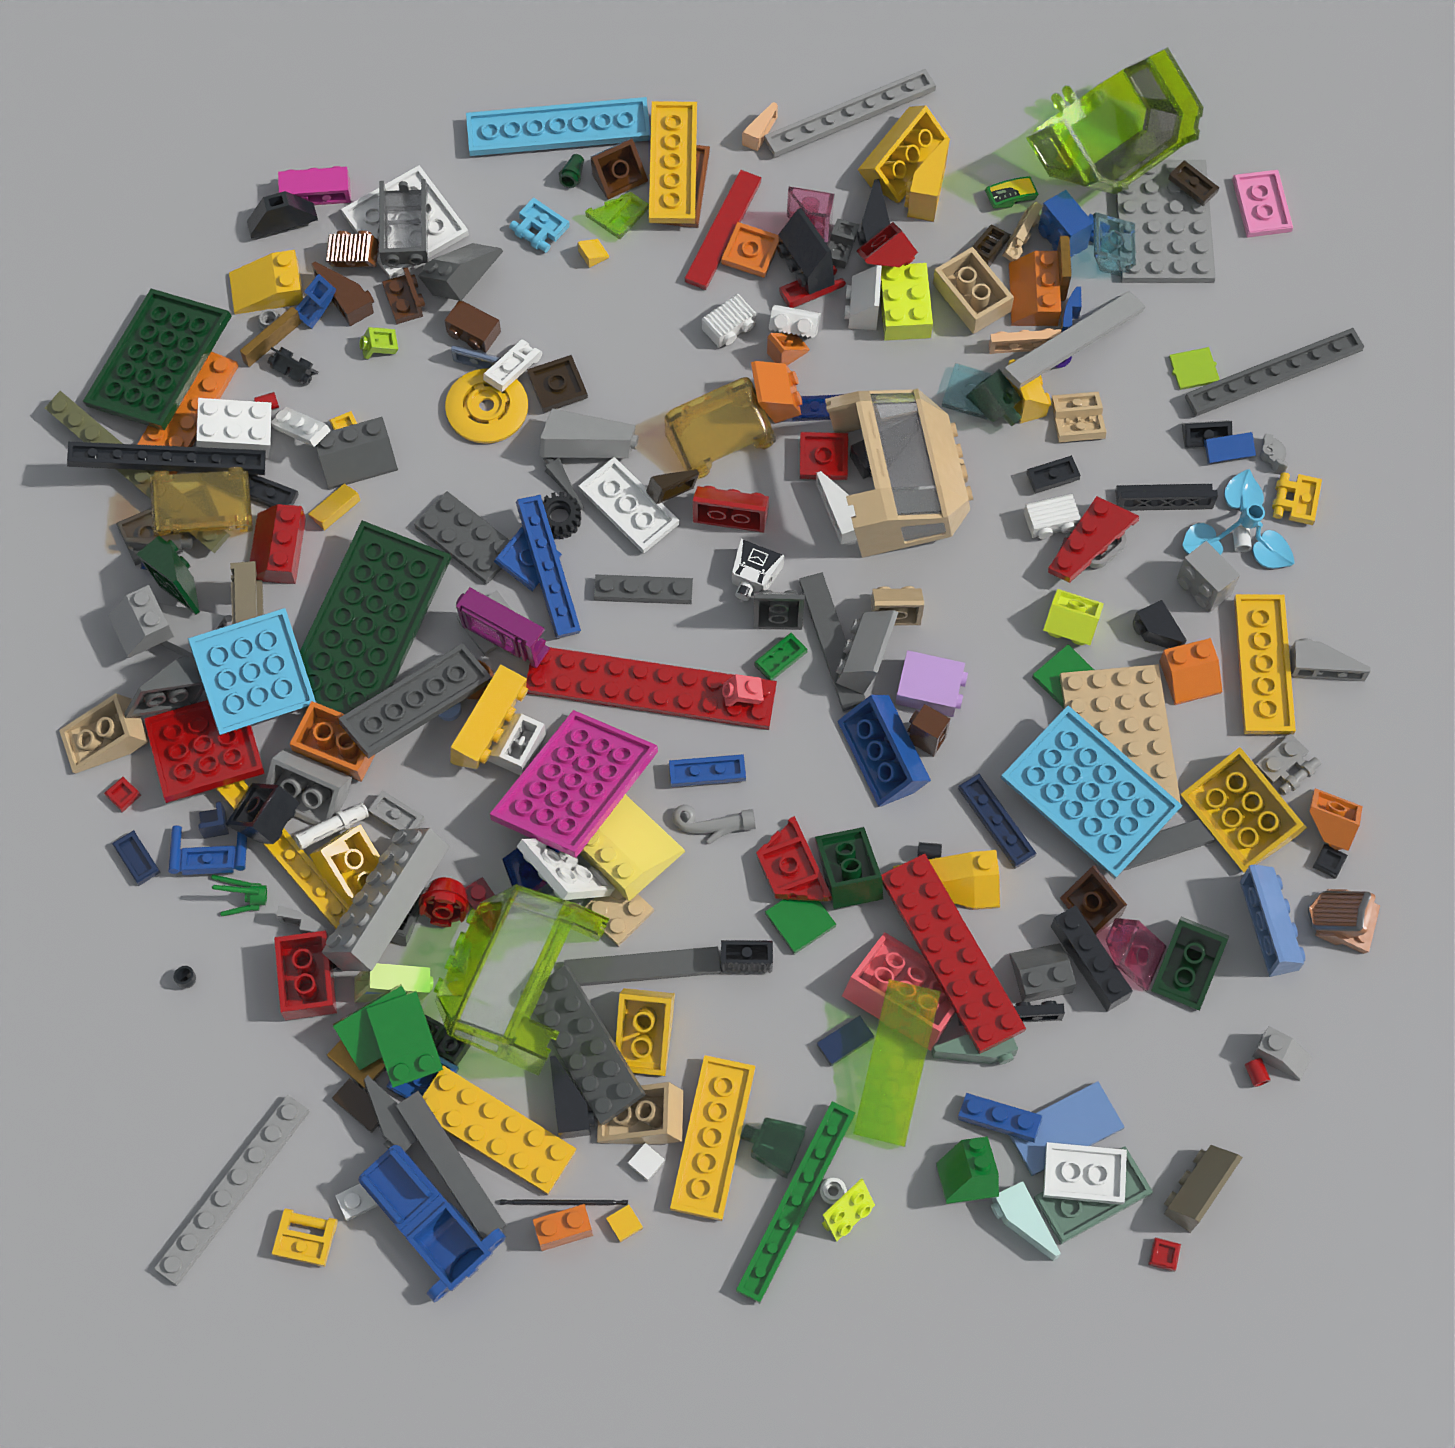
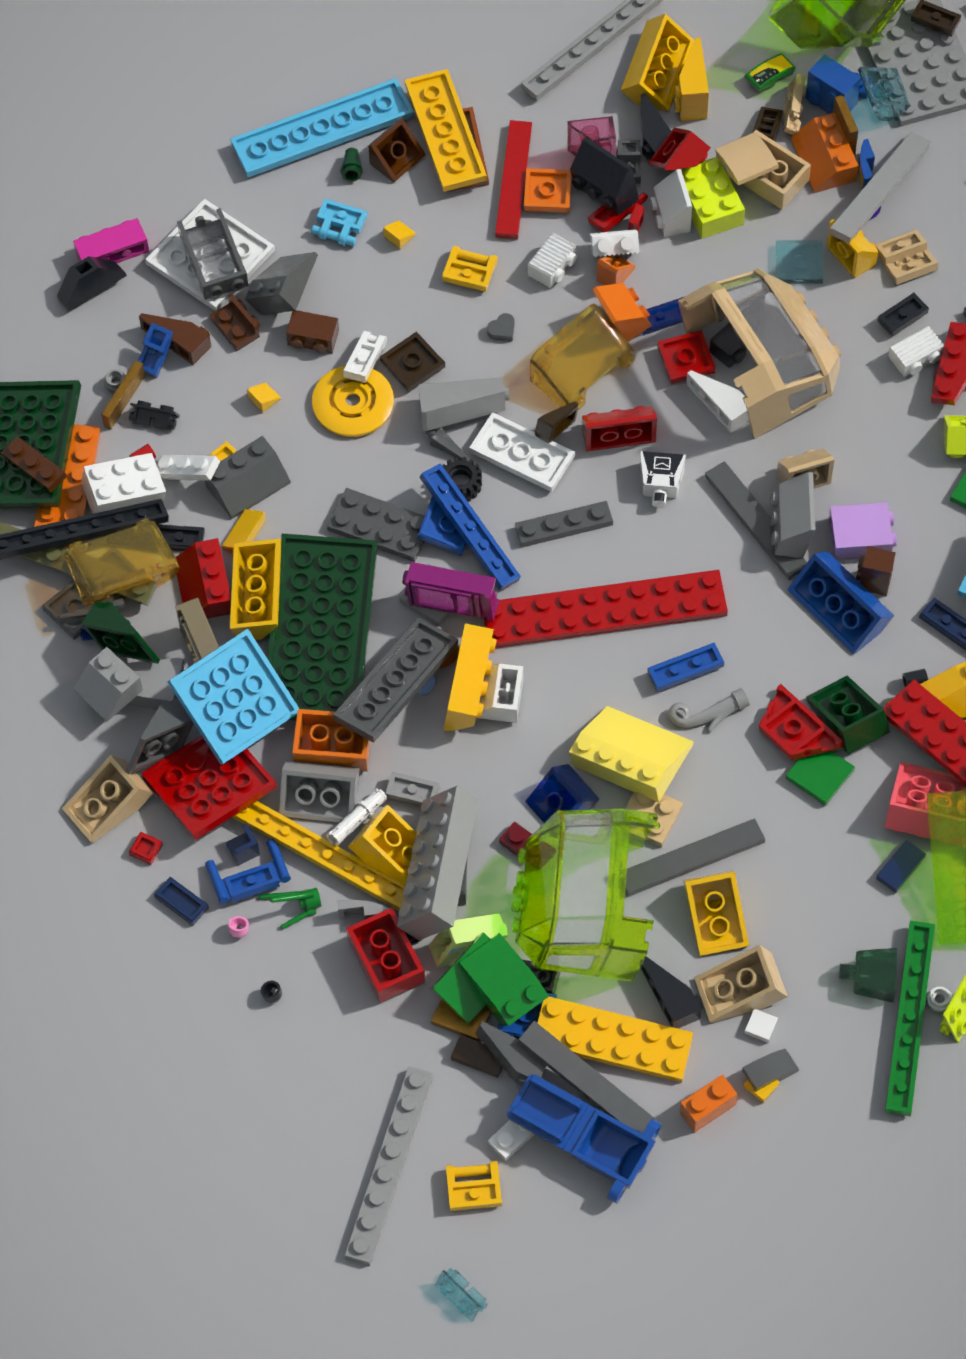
camera: 15 degrees left, 5 degrees down
(155, 382) = (34, 464): none -> reddish brown plate
(174, 899) = (234, 923): none -> bright pink hinge
(253, 1354) = (453, 1287): none -> clear light blue hinge
(263, 812) = (290, 822): black slope -> none
(267, 283) = (100, 347): yellow slope -> none
(317, 567) = (255, 587): none -> yellow slope
(352, 249) = (172, 293): dark orange brick -> none
(378, 341) = (228, 370): lime bracket -> none
(403, 376) = (263, 396): none -> yellow slope
(444, 902) = (490, 852): red cone -> none
(473, 357) = (325, 361): sand blue slope -> none
(561, 1202) = (689, 1086): black piece -> none
(563, 872) = (588, 787): white plate -> none
(574, 783) = (571, 710): dark pink plate -> none
(587, 1047) = (679, 945): dark grey plate -> none
(619, 214) = (411, 192): clear neon green wing -> none
(638, 1210) = (769, 1069): none -> dark grey slope
(643, 311) = (467, 273): none -> yellow plate
(657, 374) = (502, 327): none -> dark grey tile
(712, 1138) = (814, 986): yellow plate -> none
(743, 689) = (693, 584): coral bracket -> none
(746, 956) = (785, 817): black brick -> none
(754, 134) = (512, 81): light nougat slope -> none
(778, 610) = (699, 504): dark grey slope -> none
(780, 657) = (714, 547): green plate -> none
(825, 303) = (636, 218): none -> red tile
(951, 273) = (746, 158): none -> tan slope
(996, 398) = (827, 259): clear green torso -> none
(1020, 341) = (830, 203): light nougat plate -> none

